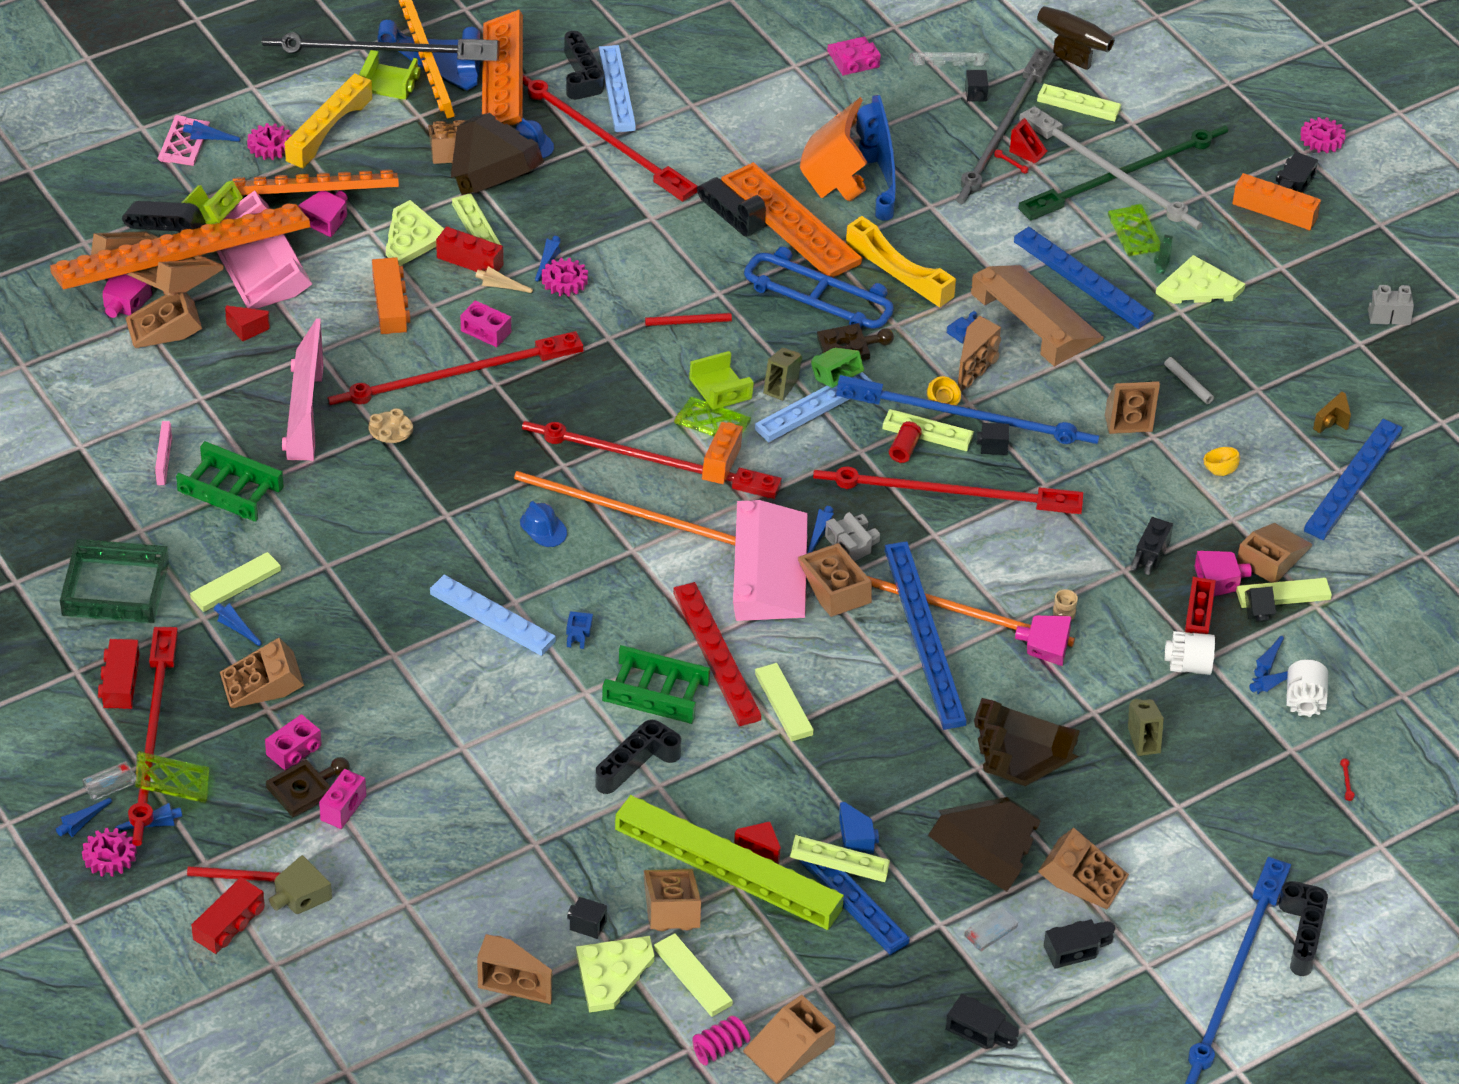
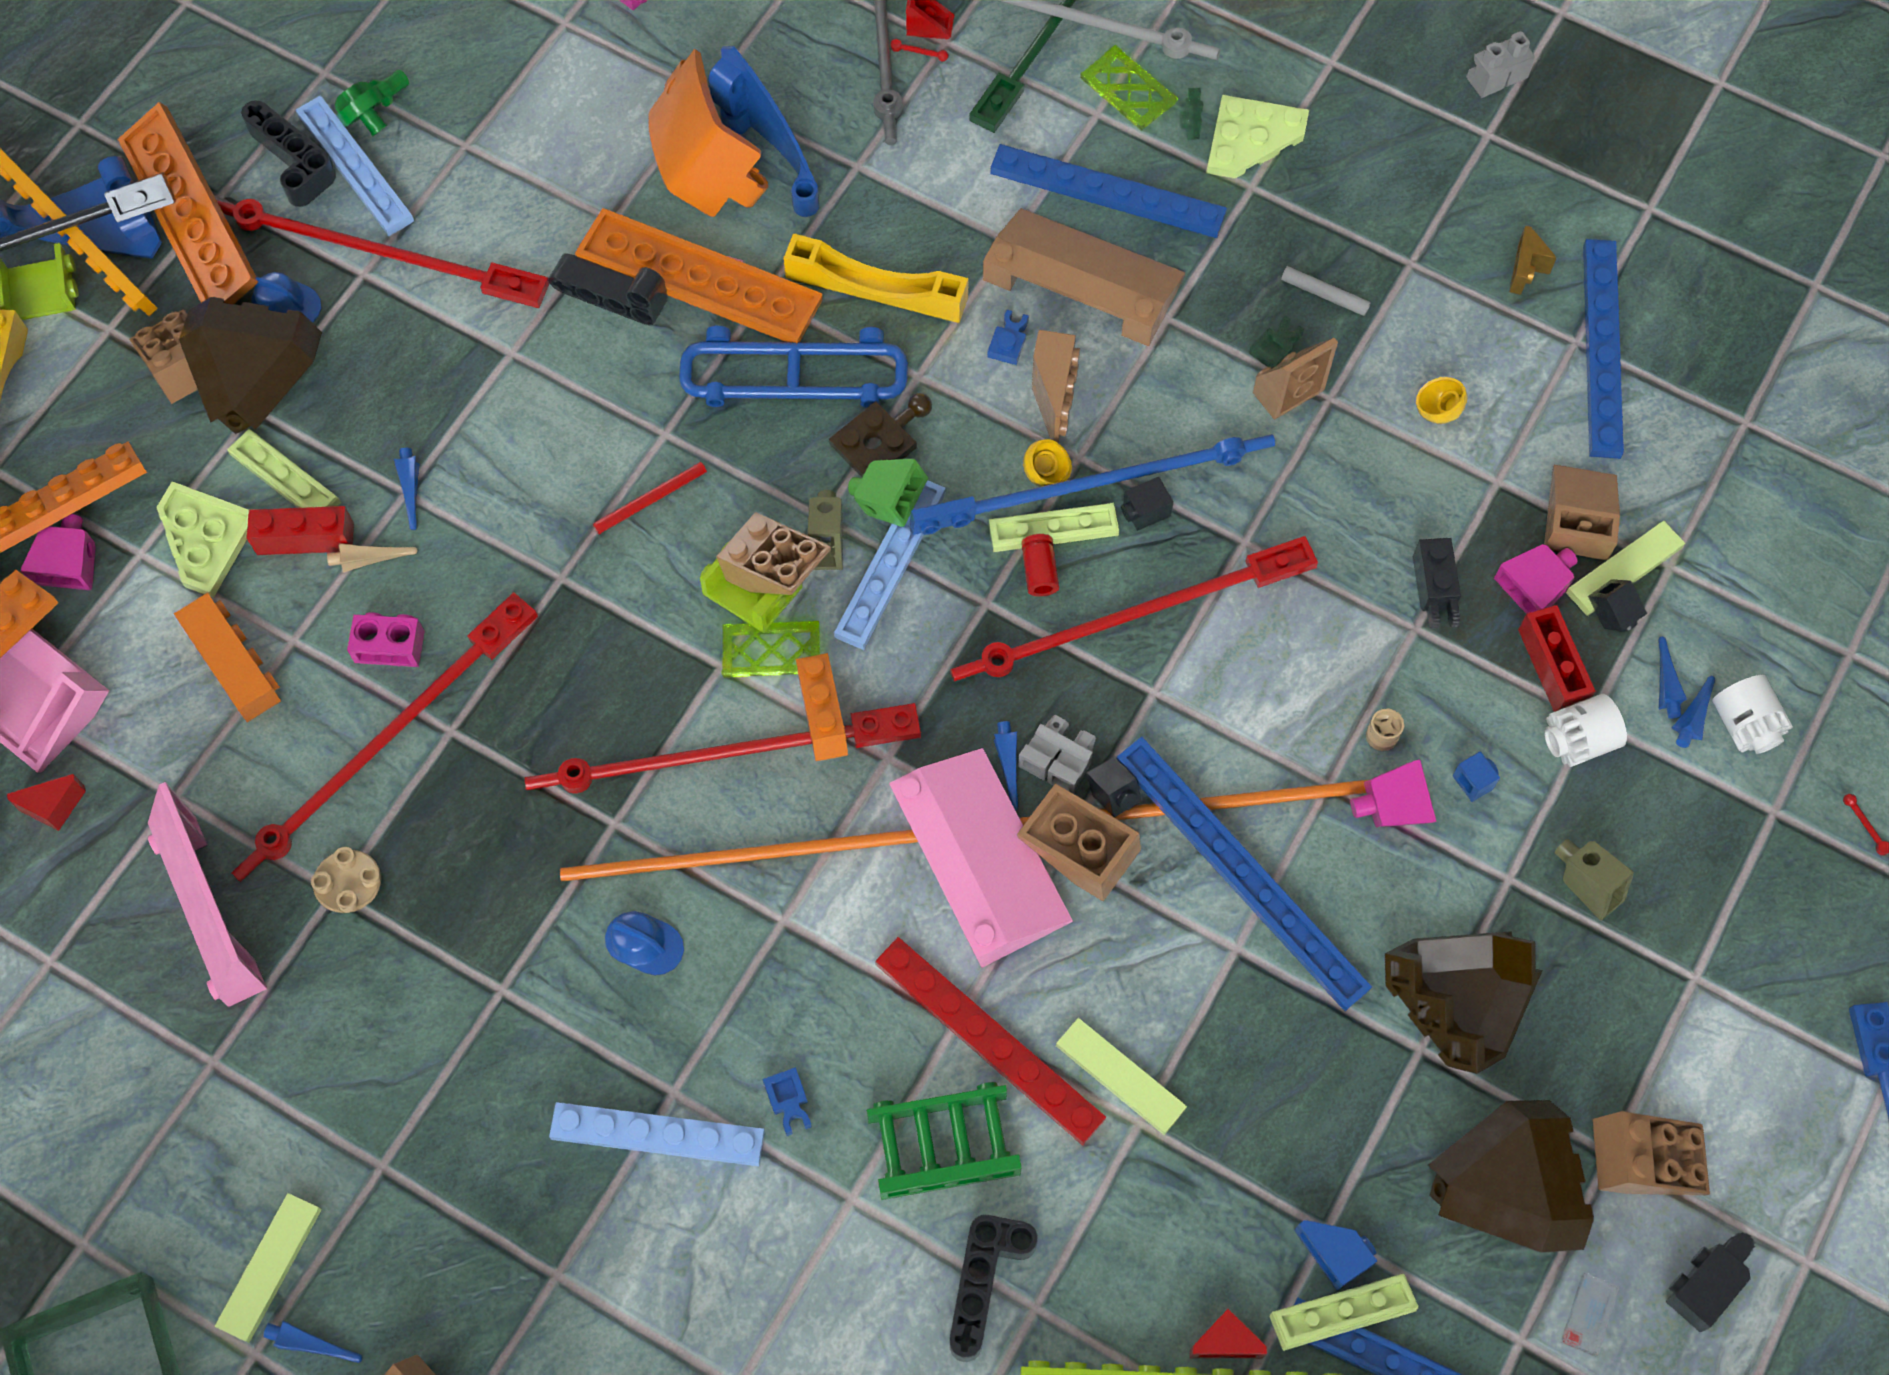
camera: 25 degrees left, 20 degrees up
(163, 453) = (47, 1095): bright pink tile -> none
(234, 464) = (155, 1066): green fence -> none
(566, 277) = (447, 506): dark pink gear -> none
(640, 56) = (362, 98): none -> green pin
(736, 363) = (770, 557): none -> medium nougat slope
(874, 562) = (1114, 787): none -> black brick
(1107, 650) = (1476, 776): none -> blue plate

